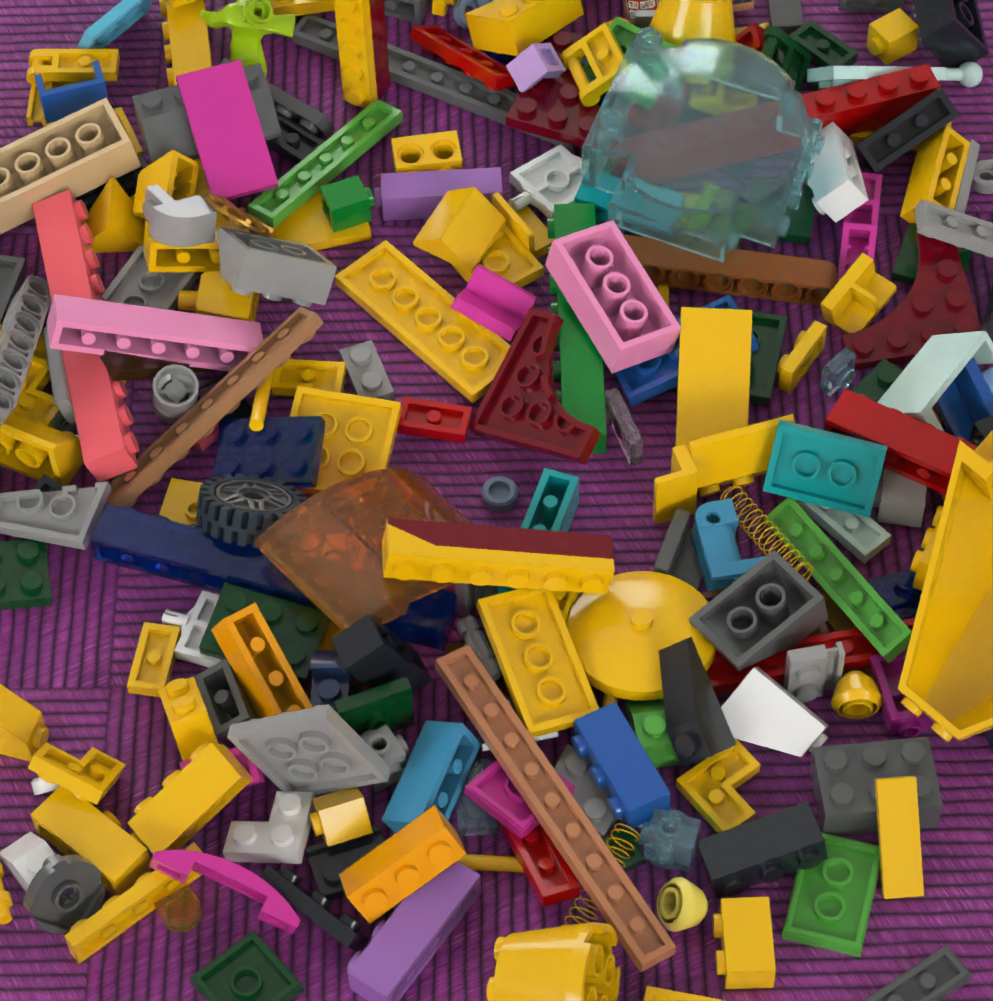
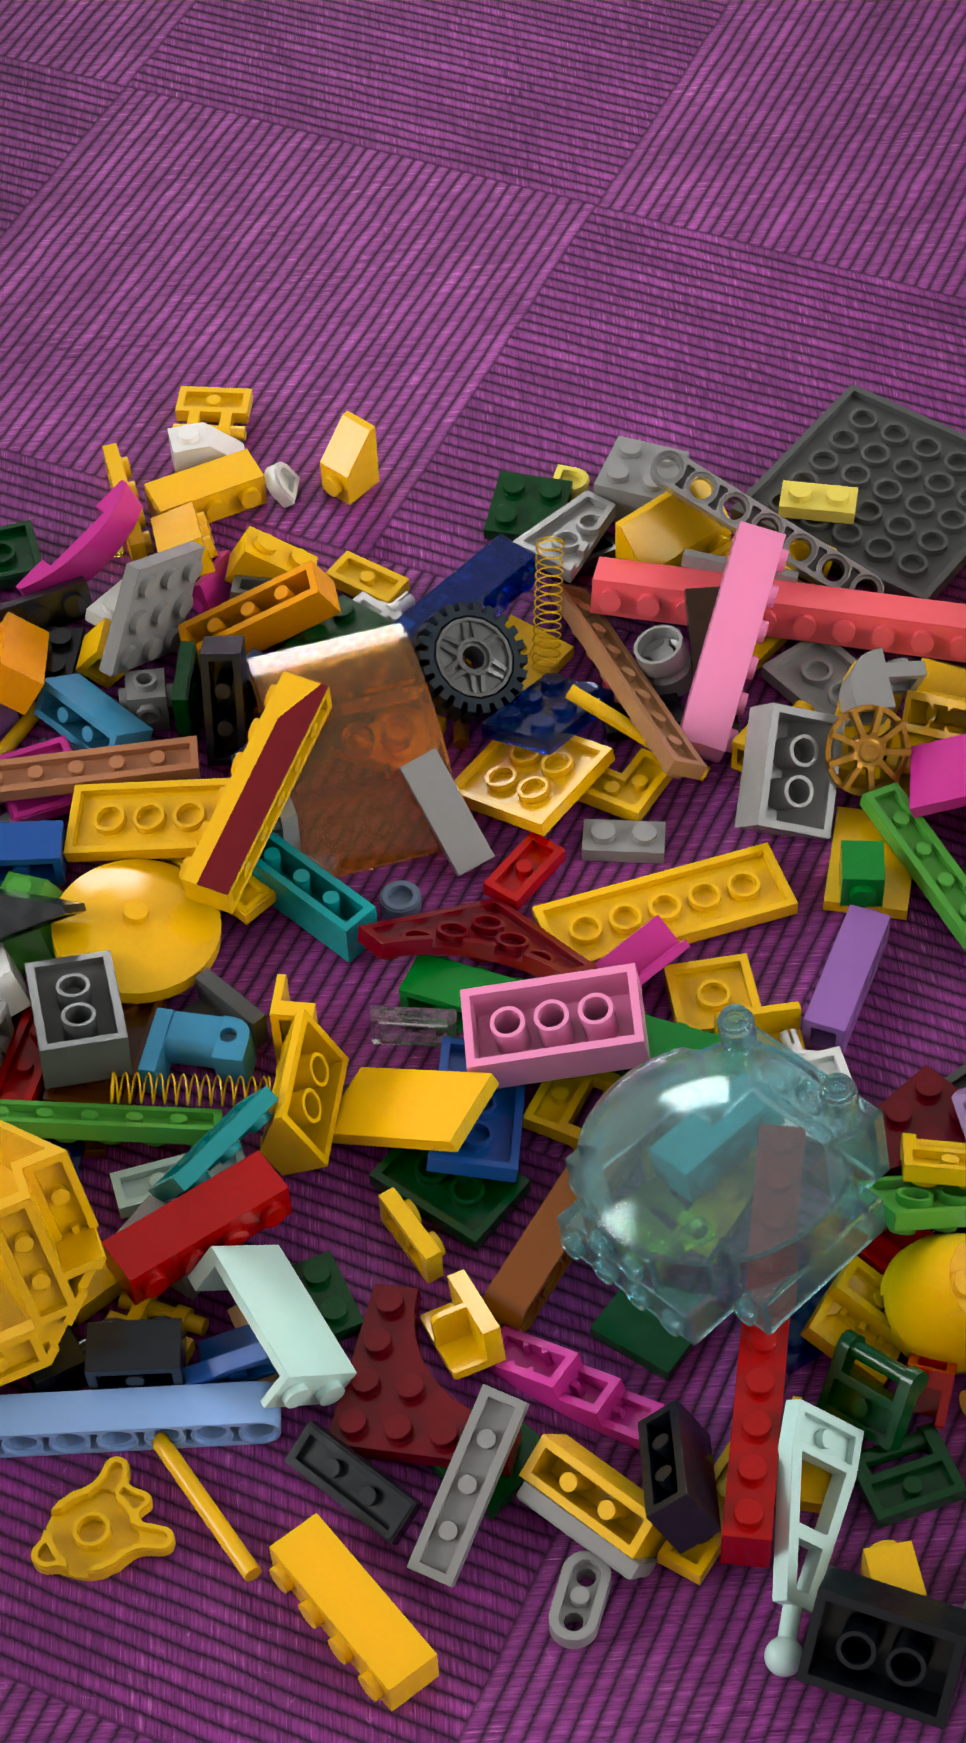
camera: 115 degrees right, 5 degrees down
(51, 880) = (154, 448): dark grey plate -> none
(86, 778) = (255, 481): yellow plate -> none
(151, 481) = (545, 658): none -> yellow piece
(416, 469) = (446, 812): none -> light grey tile
(427, 152) = (906, 983): yellow brick -> none
(461, 228) = (760, 957): yellow slope -> none
(837, 176) = (659, 1371): white brick -> none
(838, 372) = (366, 1260): clear light blue plate -> none

